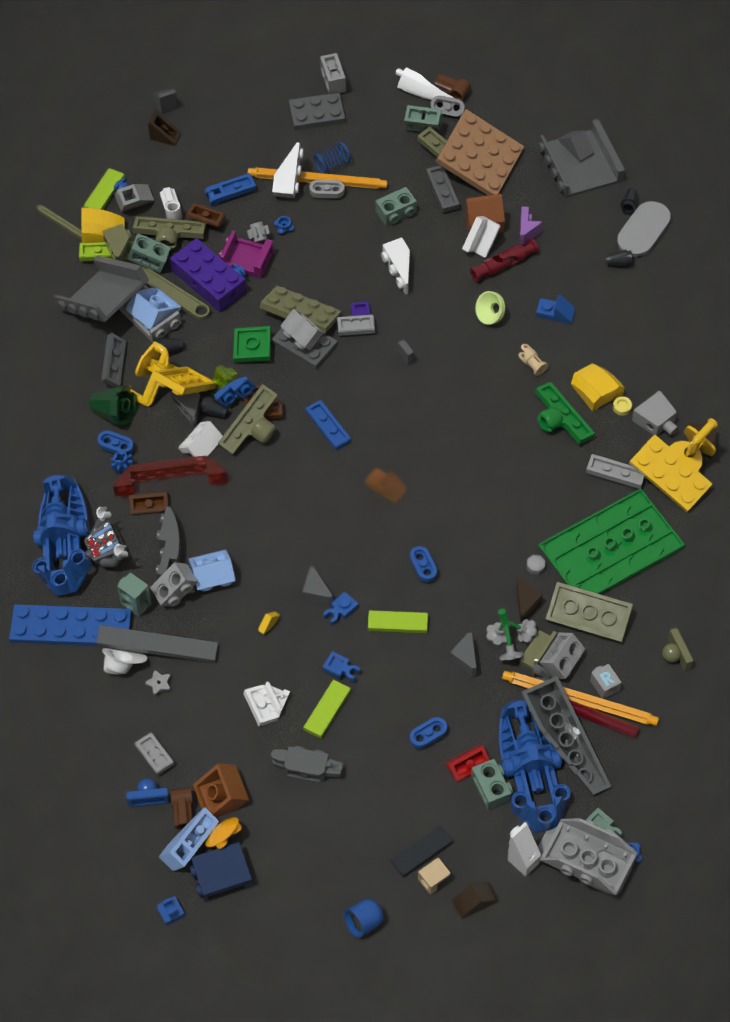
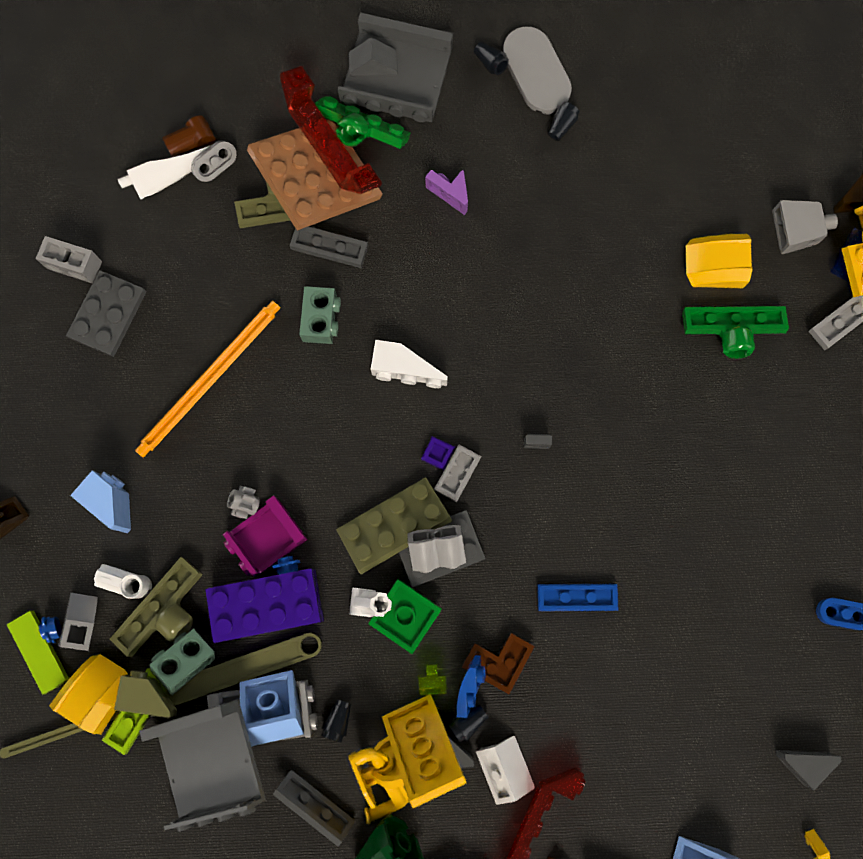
camera: 55 degrees left, 20 degrees up
(206, 215) = (172, 550): reddish brown slope -> none
(211, 166) = (105, 499): none -> light blue slope
(230, 189) = (150, 492): blue plate -> none
(245, 319) = (369, 603): none -> white piece
(251, 422) = (525, 694): olive plate -> none
(283, 220) = (245, 457): blue plate -> none
(285, 178) = (187, 417): white slope -> none
(327, 188) = (231, 376): light grey plate -> none
(341, 154) = (194, 359): blue piece -> none
(342, 606) = (845, 743): blue plate -> none
(386, 484) = (704, 585): clear orange slope -> none
(421, 118) = (217, 201): sand green brick -> none
(481, 236) = (436, 248): white panel -> none
(485, 305) = (542, 314): yellowish green piece -> none
(487, 206) = (410, 226): dark orange slope -> none
(500, 147) = (298, 93): none -> clear red slope
(503, 260) = (480, 229): dark red piece -> none
(528, 157) = (357, 125): none -> green plate
(531, 358) = (638, 307): tan piece -> none
(558, 311) = (584, 236): blue slope -> none
(622, 406) = (761, 252): light yellow tile -> none

